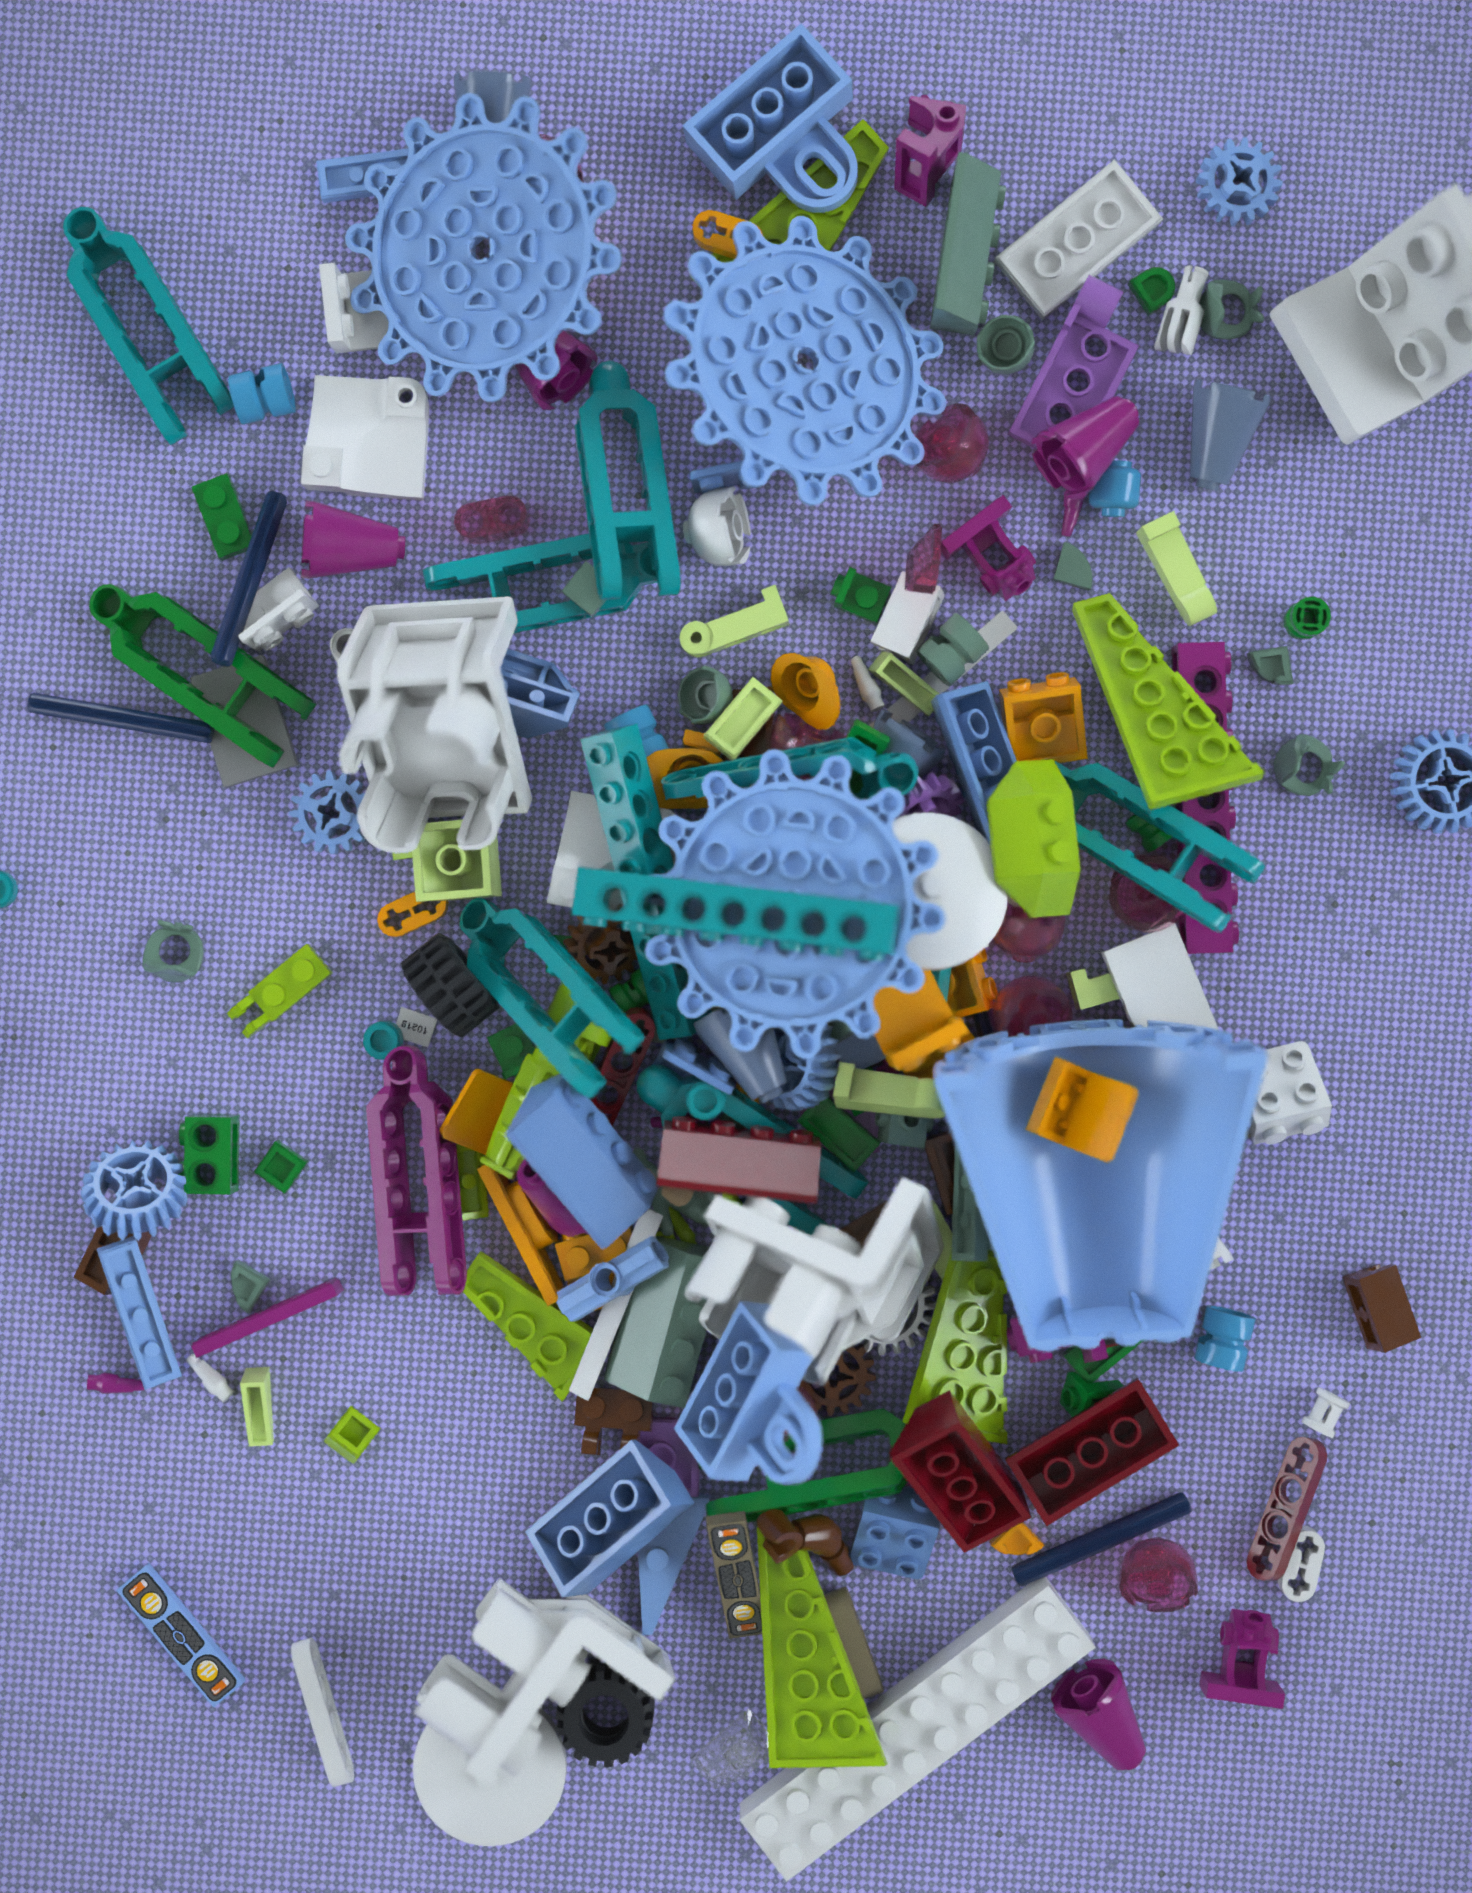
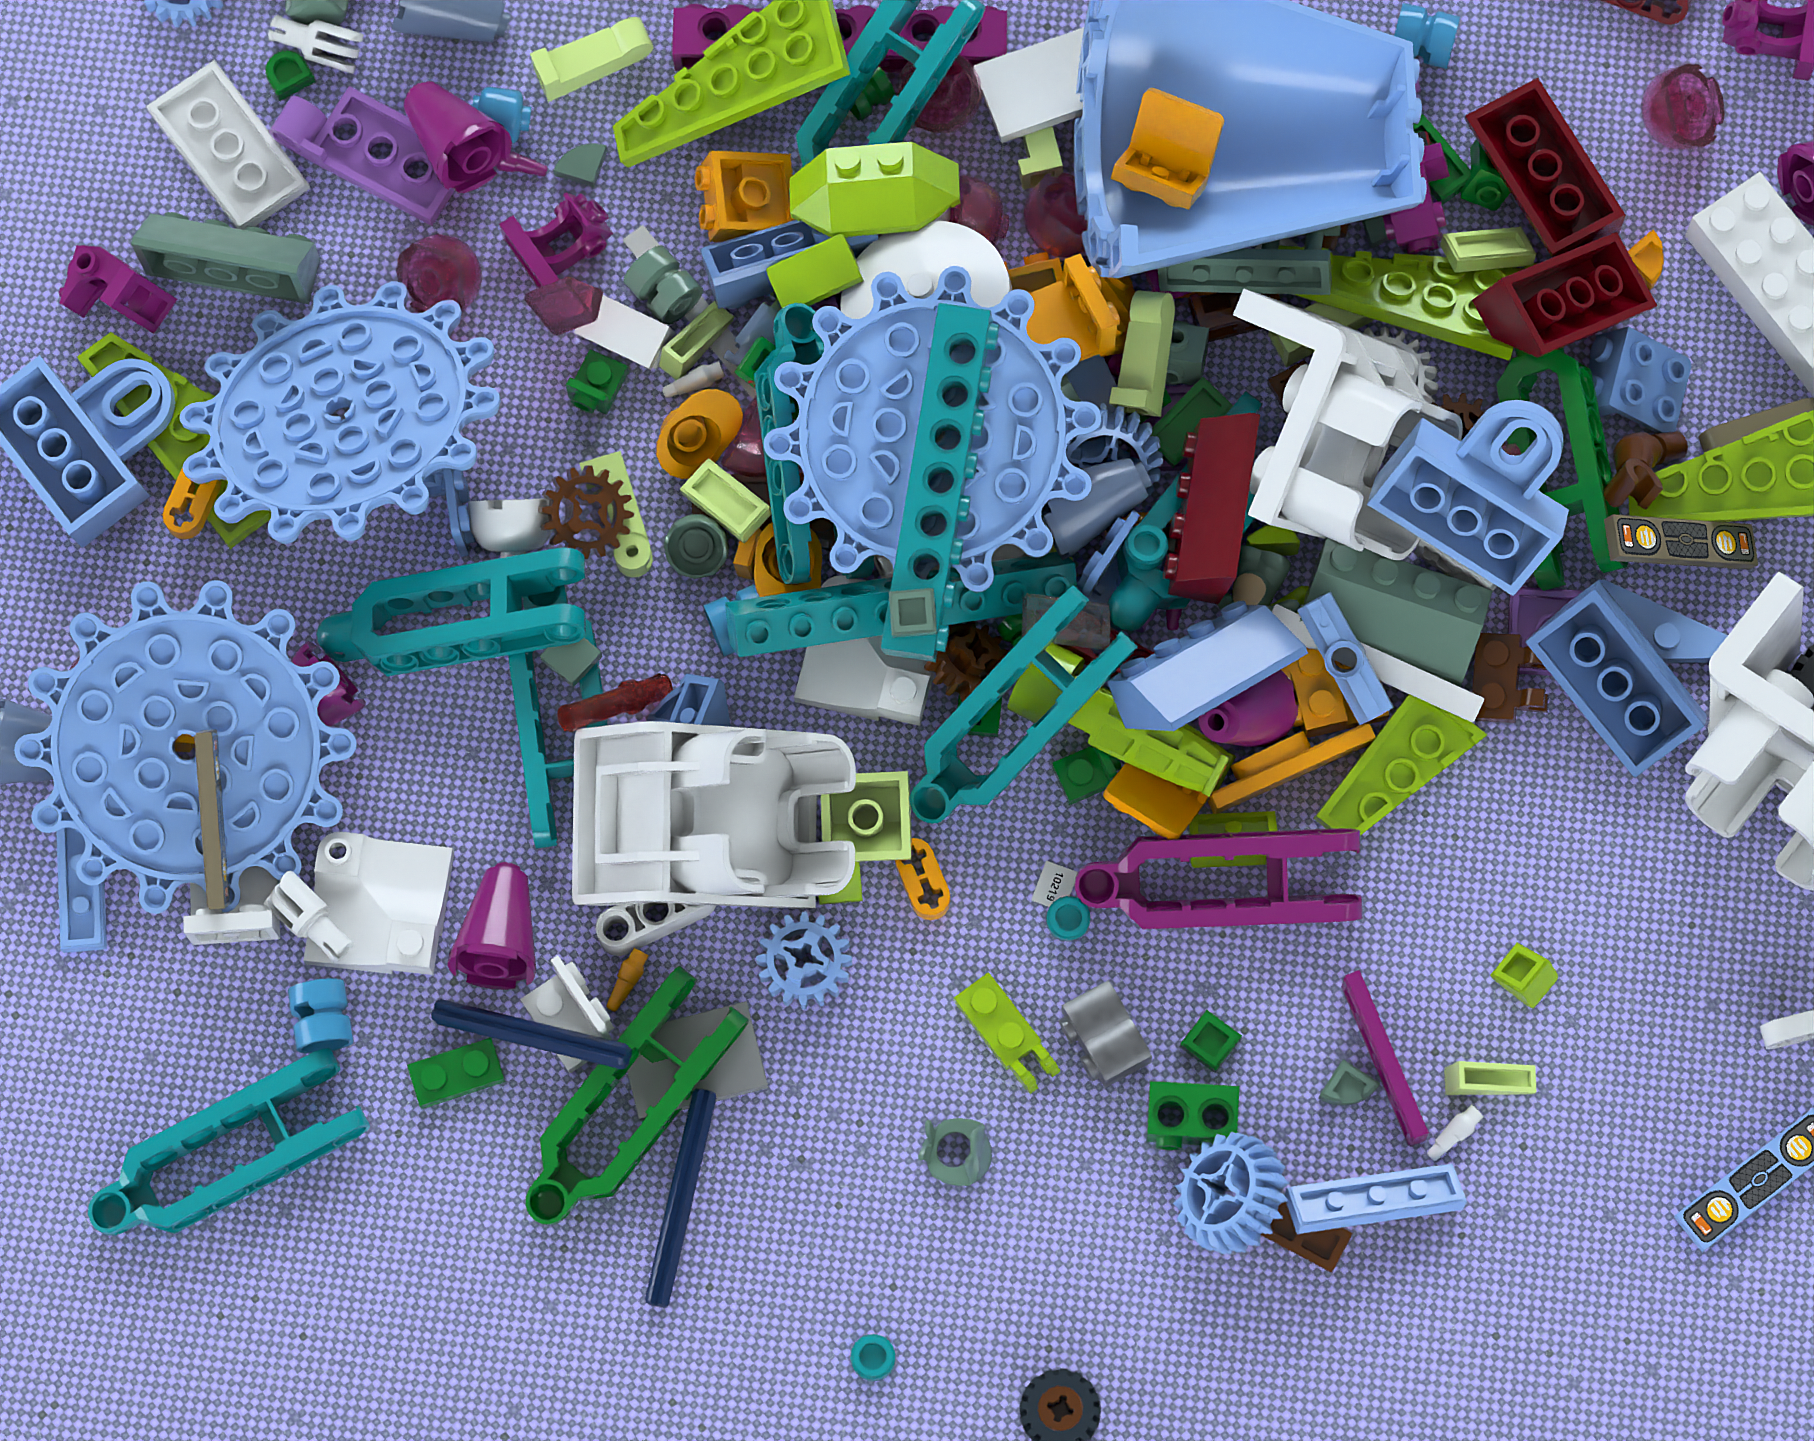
camera: 85 degrees left, 15 degrees down
(111, 1383) = (1461, 1245): magenta piece -> none
(278, 1076) = (1105, 1034): none -> flat silver brick
(316, 660) = (628, 976): none -> light orange piece
(346, 373) = (307, 916): none -> white arm
(415, 278) = (212, 819): none -> dark tan tile
(447, 986) = (1007, 824): black tyre -> none
(491, 512) = (483, 768): clear pink beam -> none
(556, 642) = (628, 698): none -> clear red pin
(607, 894) = (913, 612): none -> sand green tile
(640, 1009) = (1086, 630): none -> clear tile
(734, 602) = (572, 498): none -> reddish brown gear
(950, 788) = (815, 273): none -> lime slope
(1005, 344) = (336, 219): sand green hair -> none
(1016, 1398) = (1488, 249): none -> yellowish green tile
(1101, 1539) = (1646, 172): dark blue axle -> none

